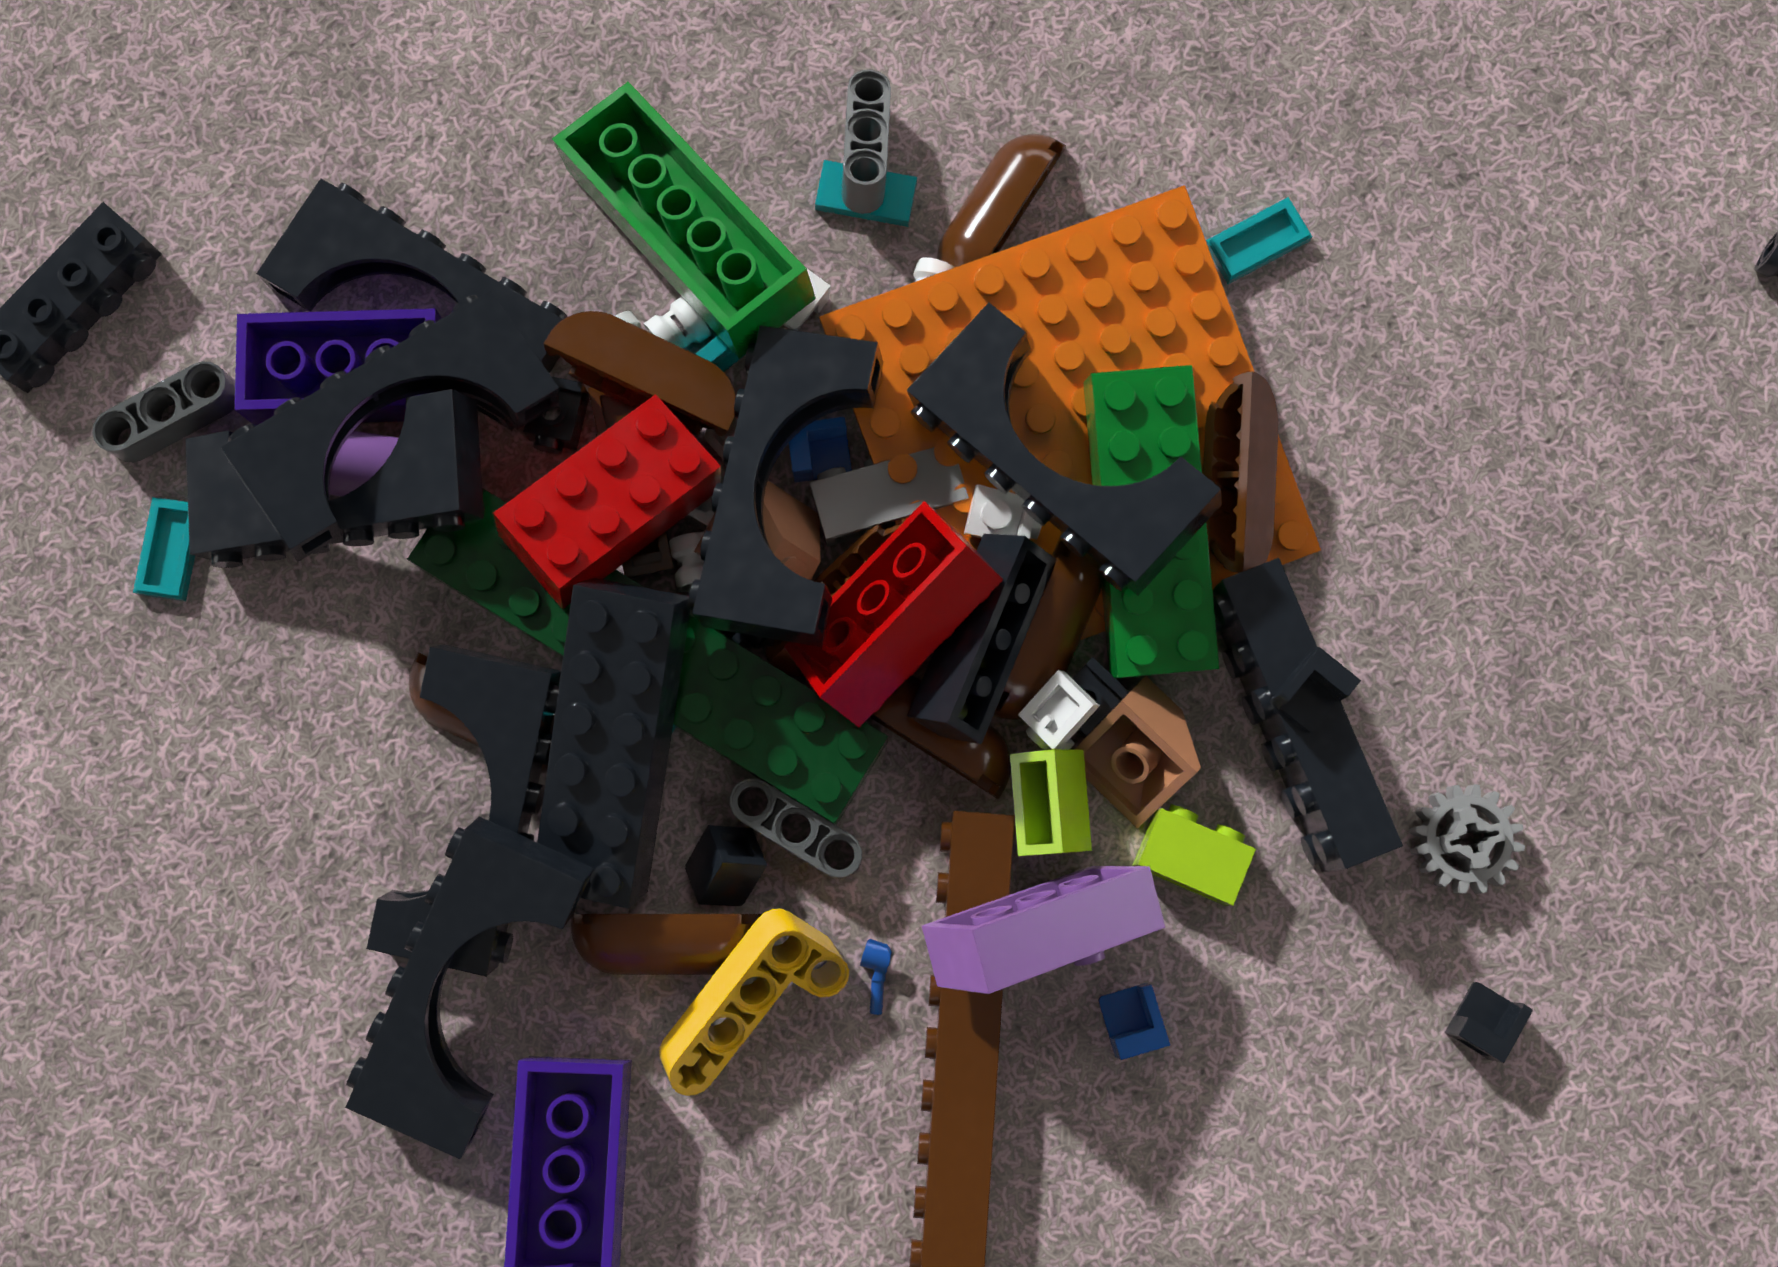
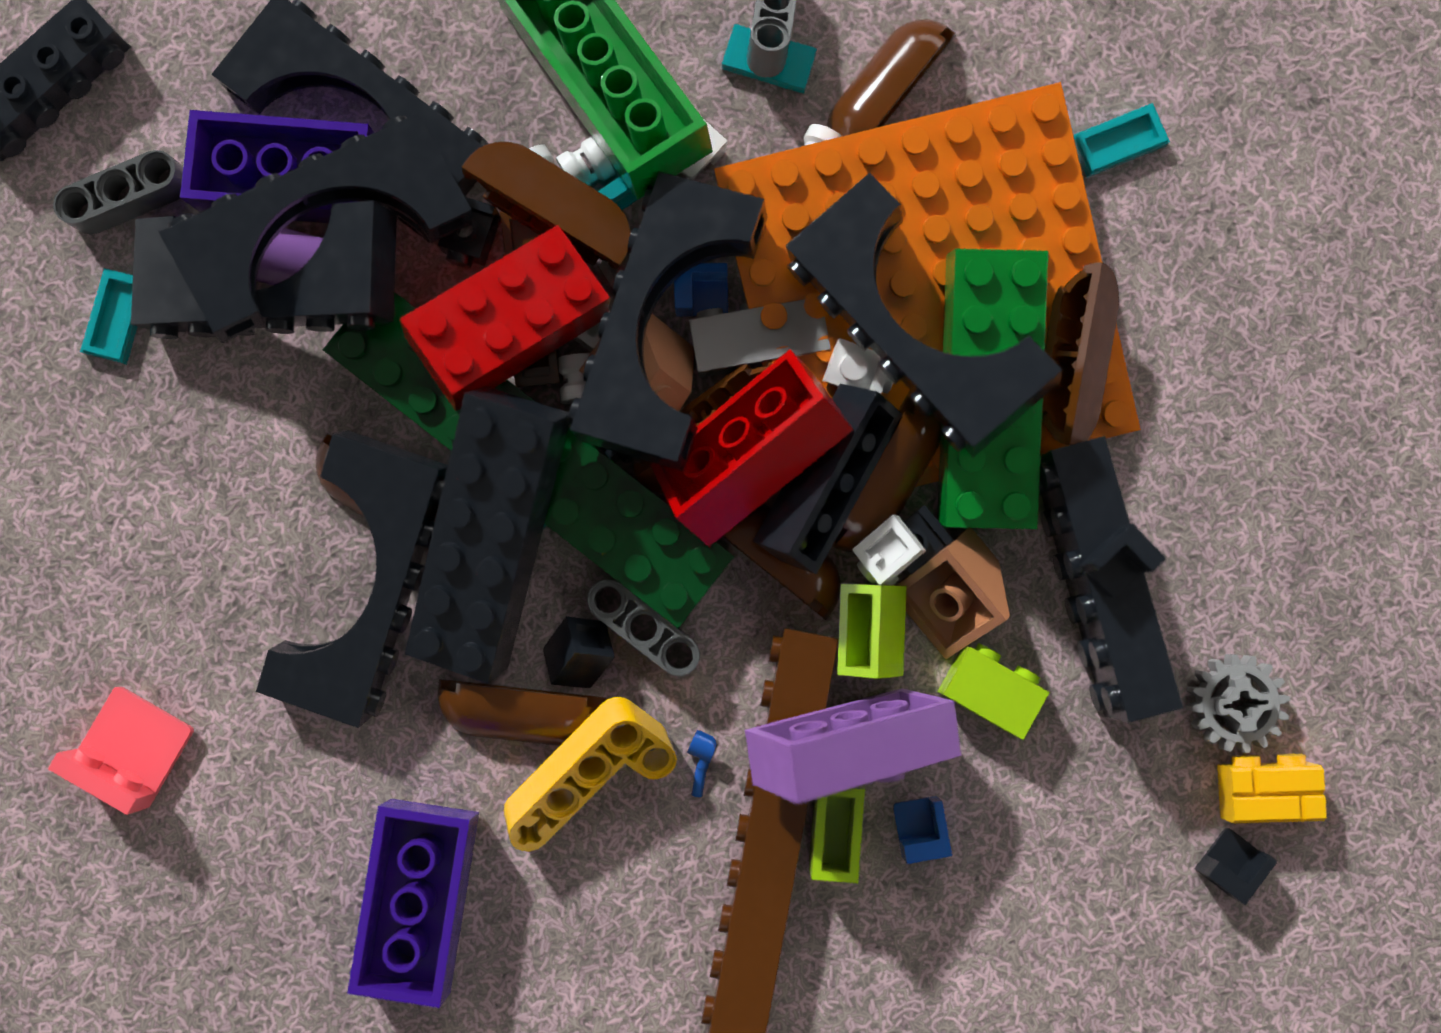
camera: 10 degrees right, 5 degrees up
(223, 1035) = (125, 752): none -> coral bracket
(409, 1071) = (284, 801): black arch -> none
(1038, 1033) = (837, 836): none -> lime brick
(1517, 933) = (1271, 791): none -> yellow brick

